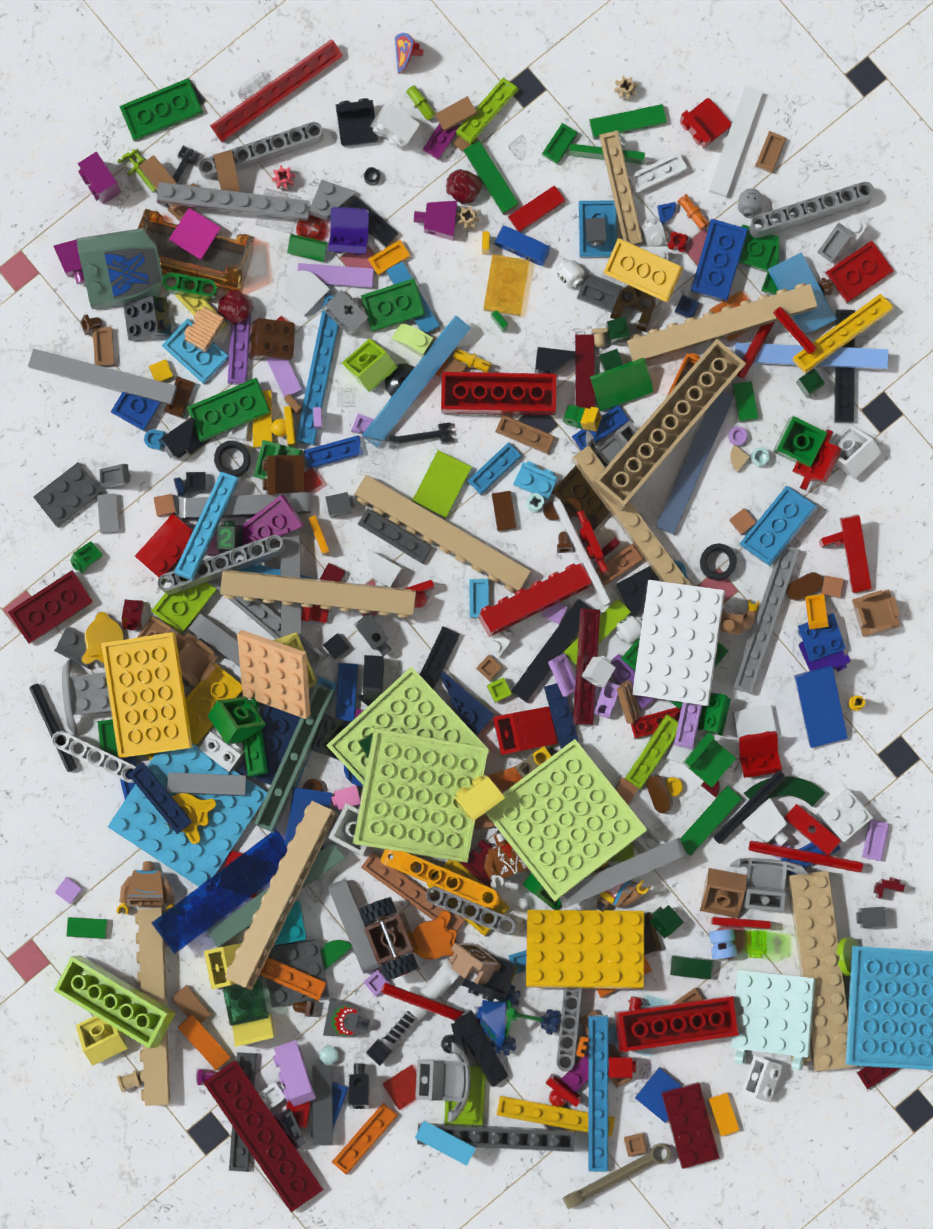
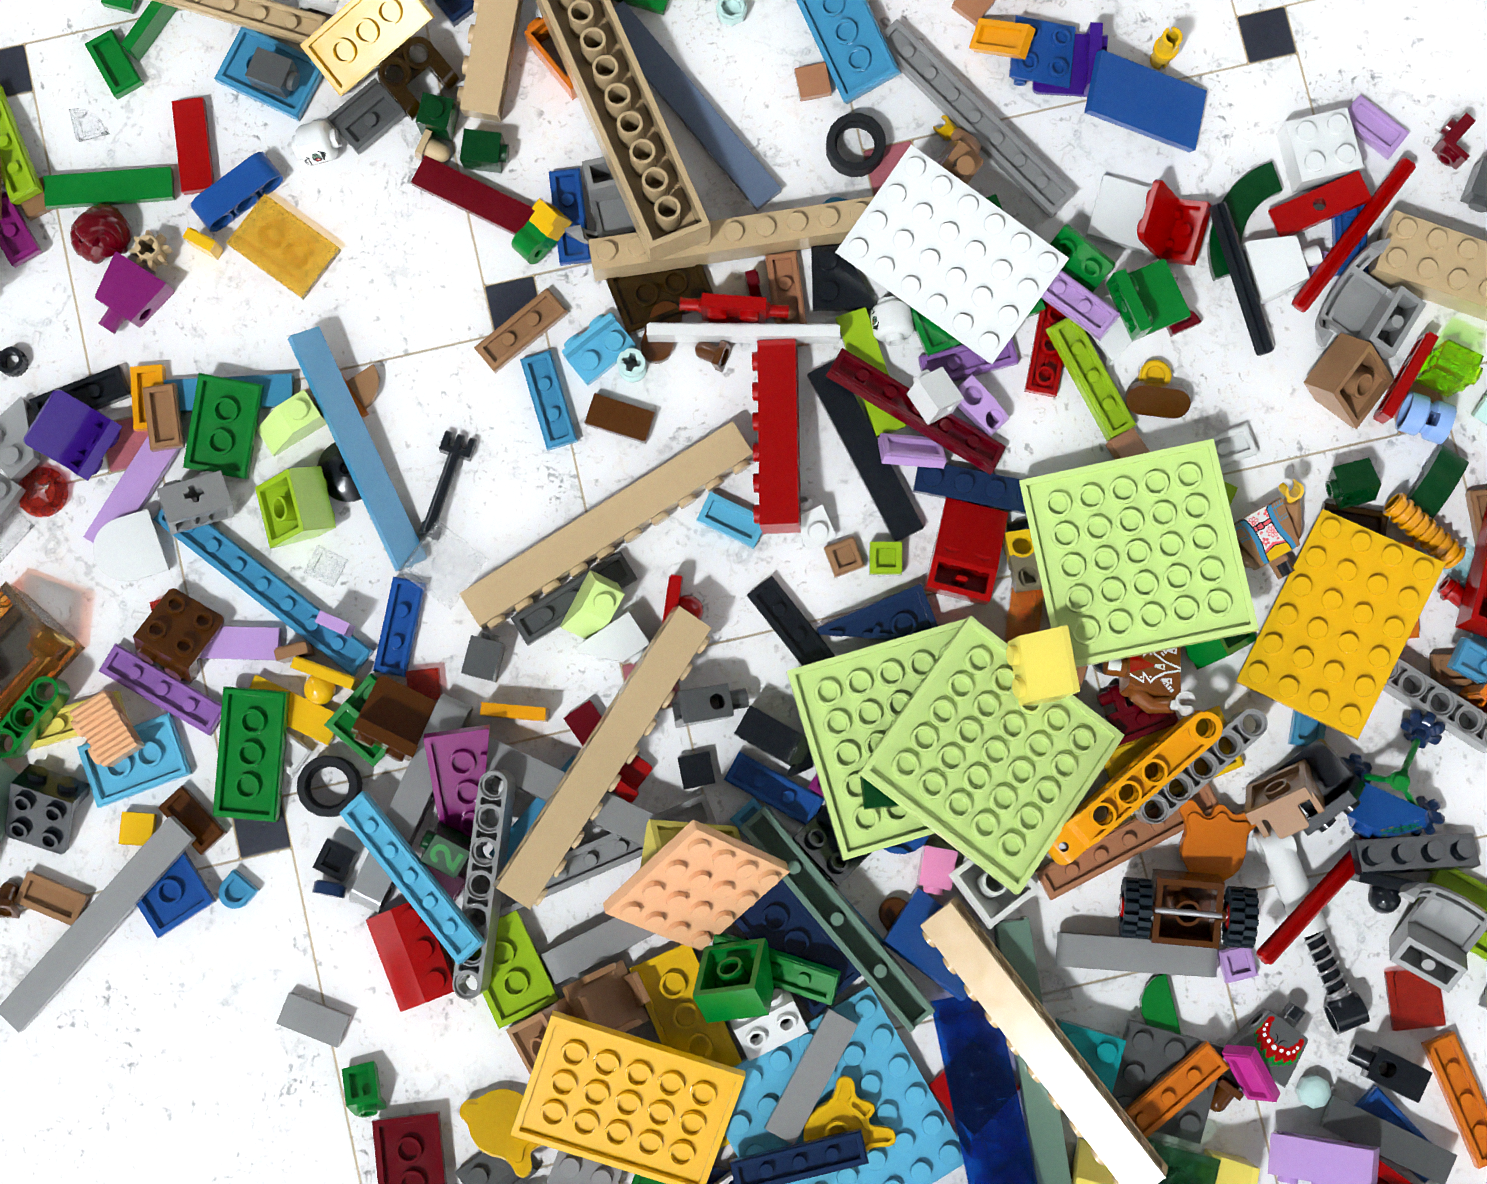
camera: 65 degrees left, 0 degrees up
(67, 494) = (251, 1069): dark grey plate -> none
(114, 476) = (260, 981): dark grey tile -> none
(132, 614) = (489, 1060): dark red bracket -> none
(164, 505) = (346, 925): nougat tile -> none
(178, 439) = (255, 854): black slope -> none
(235, 306) = (97, 664): dark red hair -> none
(307, 247) = (67, 511): green tile -> none
(321, 1014) = (1251, 1073): none -> dark pink tile
(361, 423) = (378, 564): lavender tile -> none
(382, 271) = (163, 417): none -> medium nougat tile
(395, 547) = (592, 606): none -> yellowish green slope
(441, 484) = (532, 489): lime tile -> none
(472, 360) = (369, 351): yellow pin -> none
(498, 393) = (439, 335): red brick -> none
(499, 320) = (331, 281): green tile -> none
(552, 360) = (431, 235): black slope -> none
(555, 613) = (811, 419): lavender tile -> none
(621, 384) = (520, 149): green tile -> none
(624, 872) = (1258, 499): light grey beam -> none
(628, 702) = (1000, 375): medium nougat tile -> none
(660, 972) = (1424, 530): none -> light orange piece
(709, 820) = (1230, 350): green tile -> none
(737, 436) = (684, 26): lavender tile -> none
(738, 458) = (716, 41): tan tile -> none
(804, 586) = (953, 40): reddish brown tile -> none

